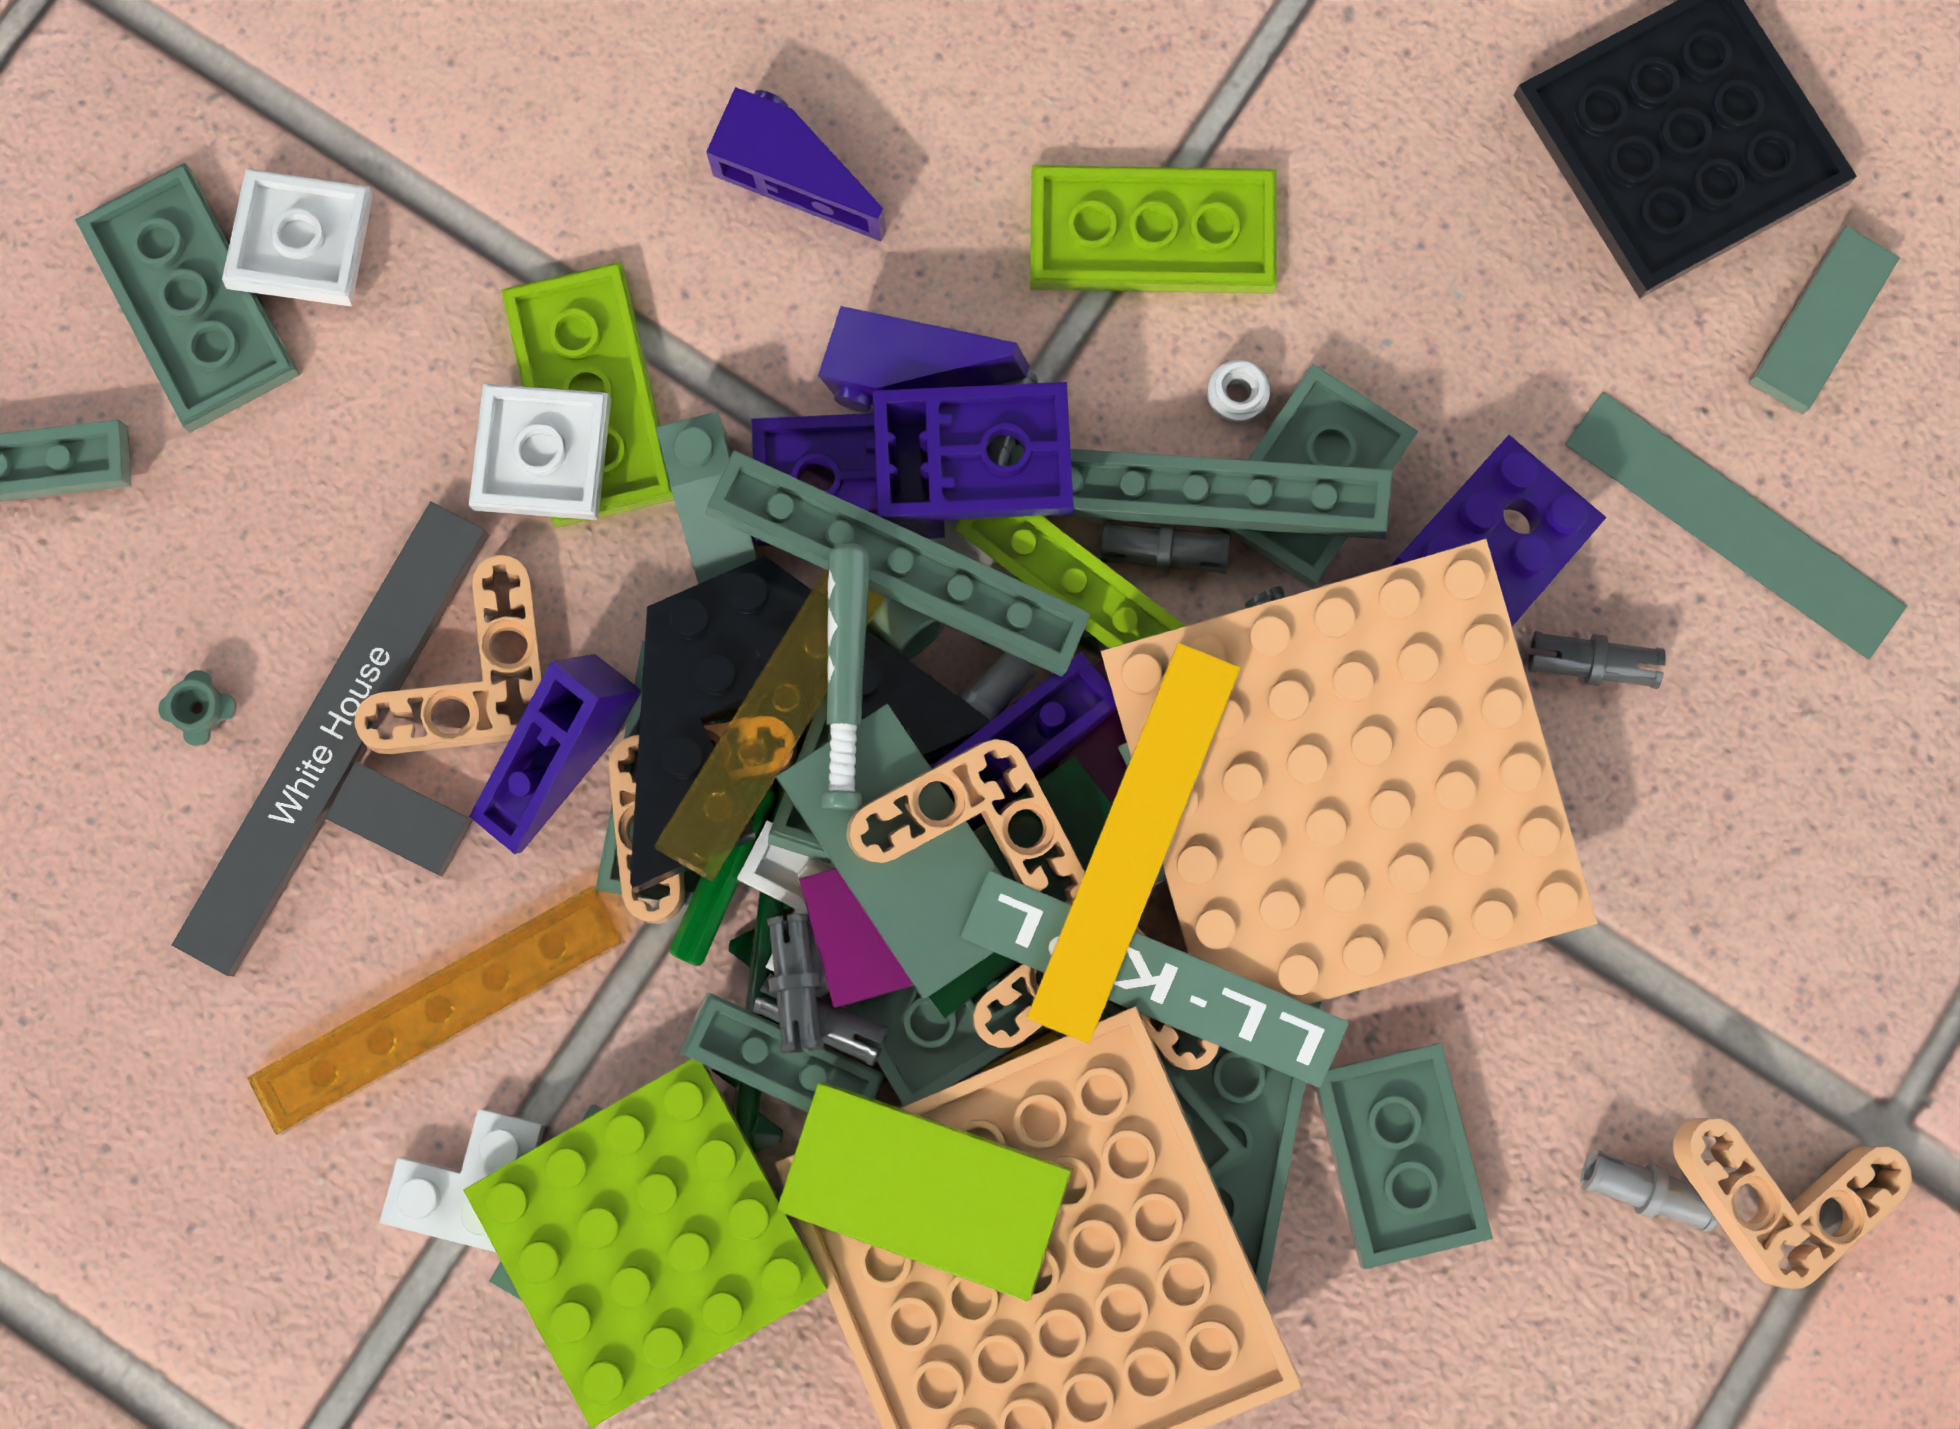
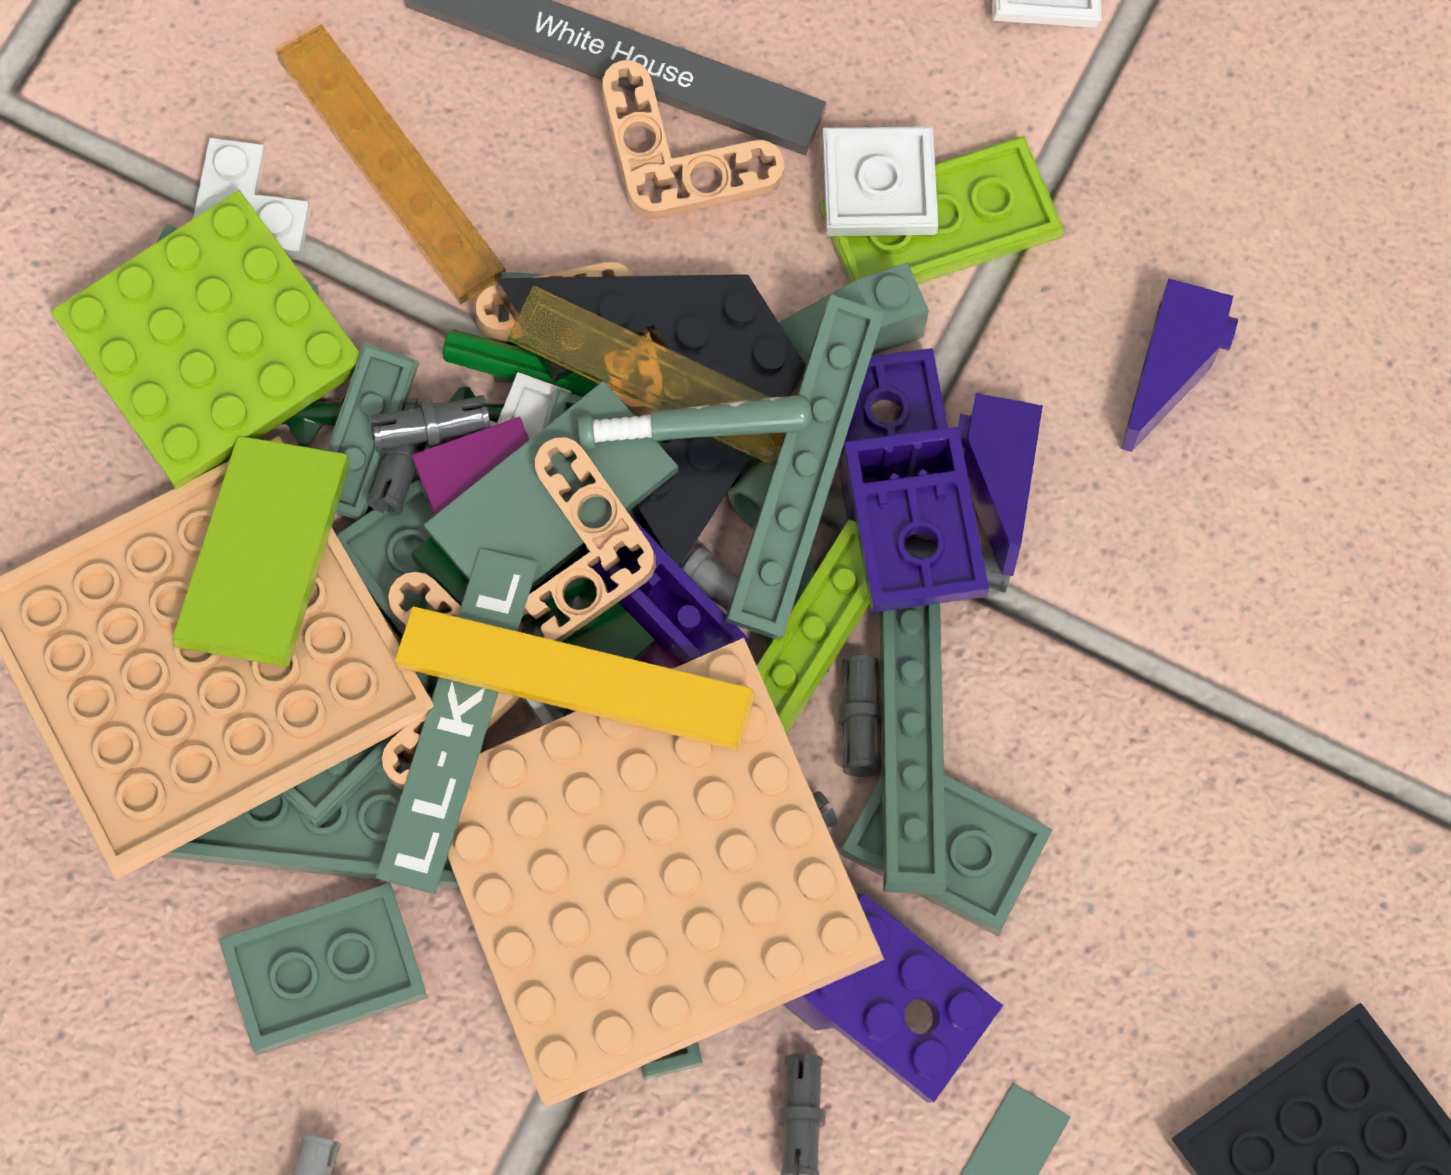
camera: 80 degrees right, 10 degrees down
(398, 819) = (548, 113): dark grey tile -> none
(553, 747) = (623, 222): dark purple slope -> none
(1153, 229) = (1167, 684): lime tile -> none
(1244, 374) = (1026, 755): white plate -> none

